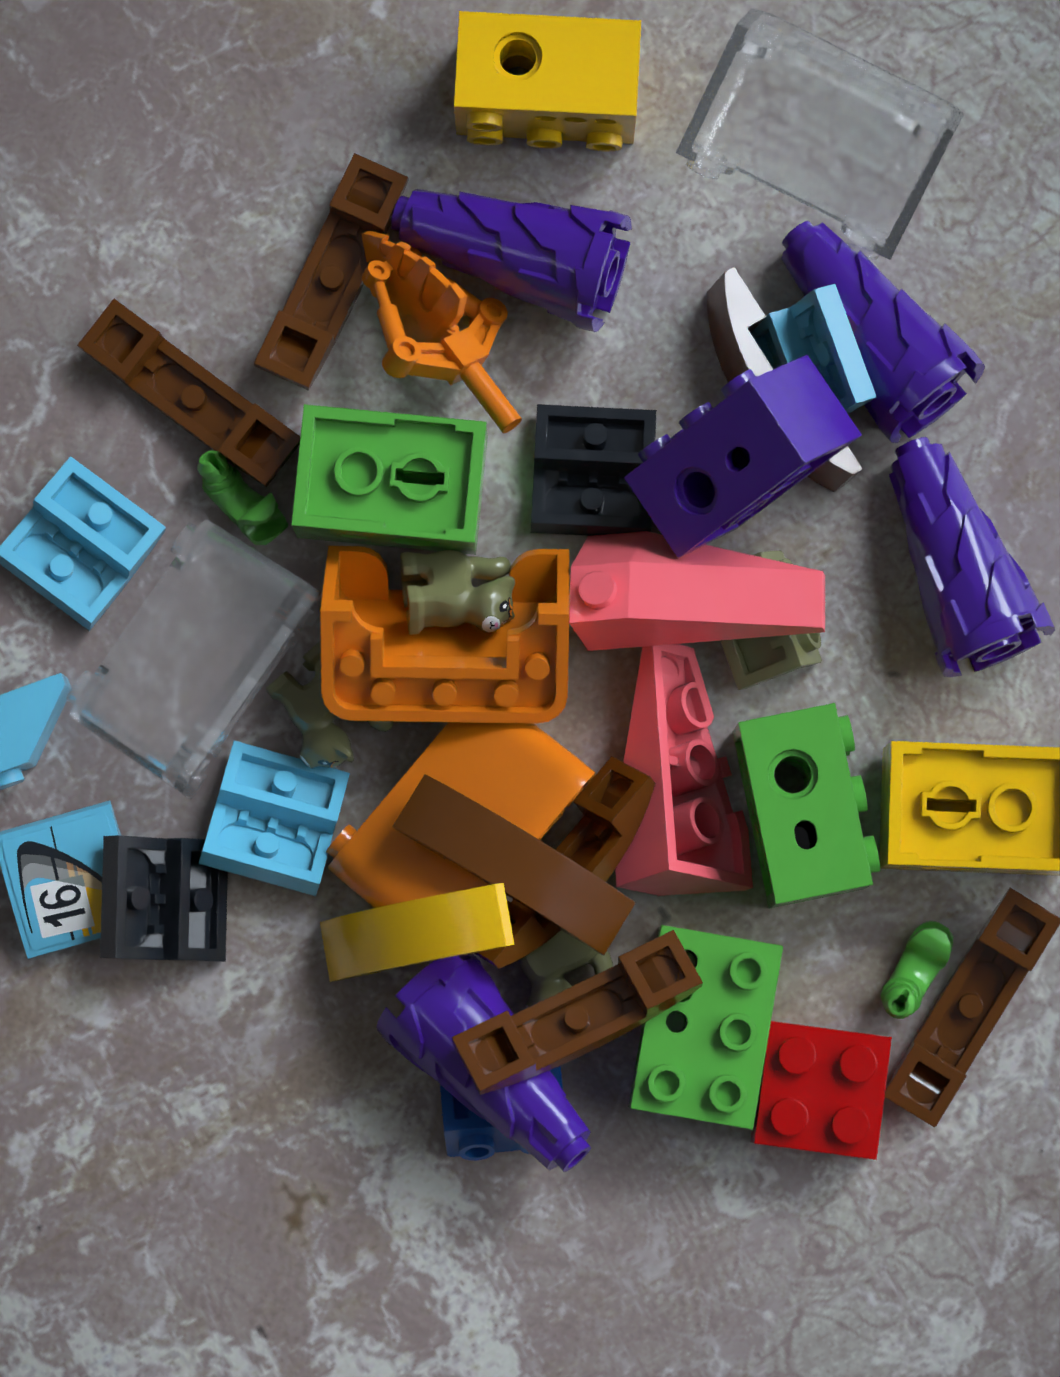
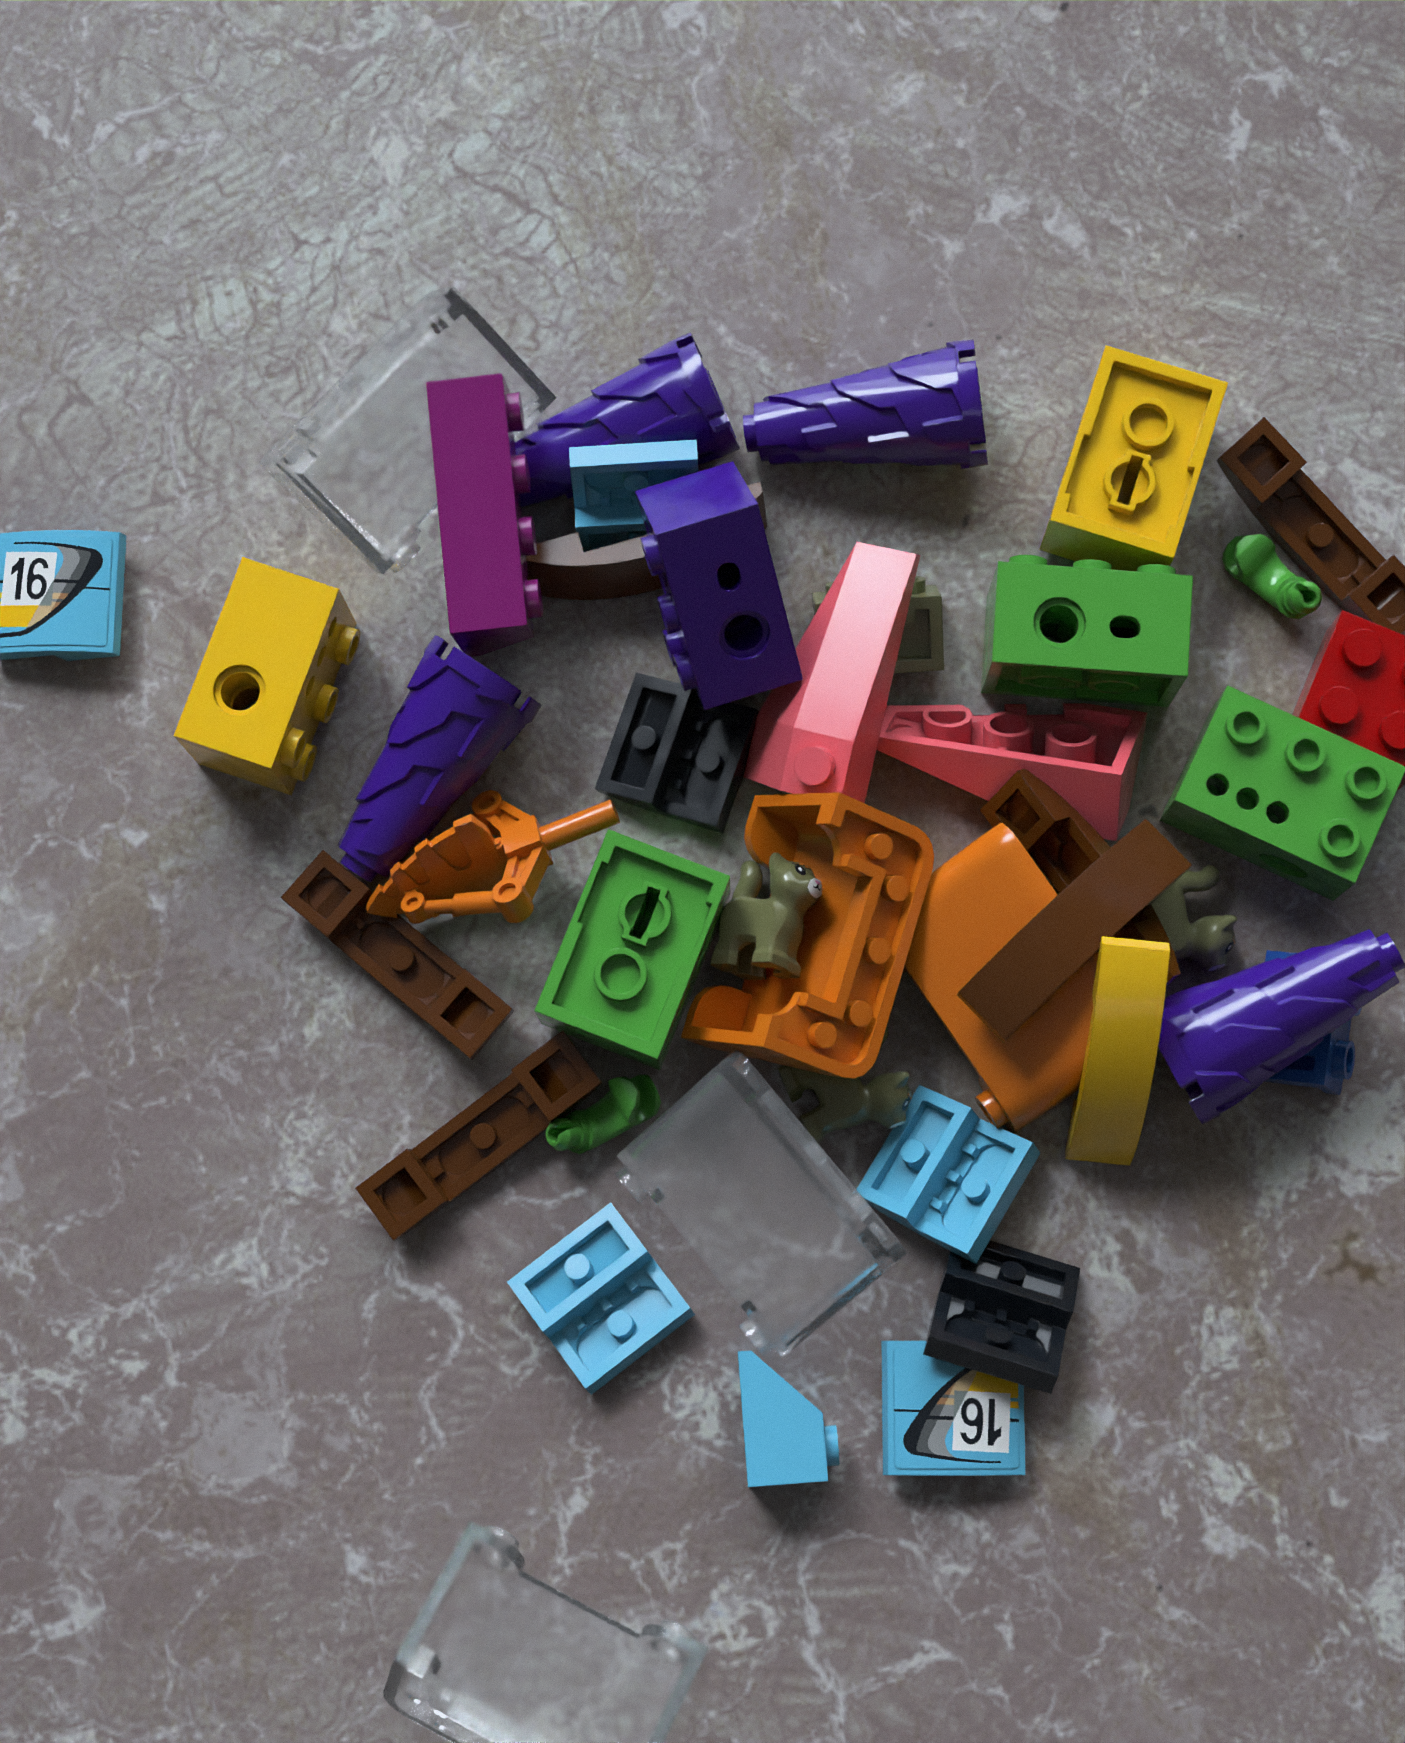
camera: 70 degrees left, 5 degrees down
(578, 1018) = (1251, 904): reddish brown slope -> none
(752, 221) = (482, 513): none -> magenta slope

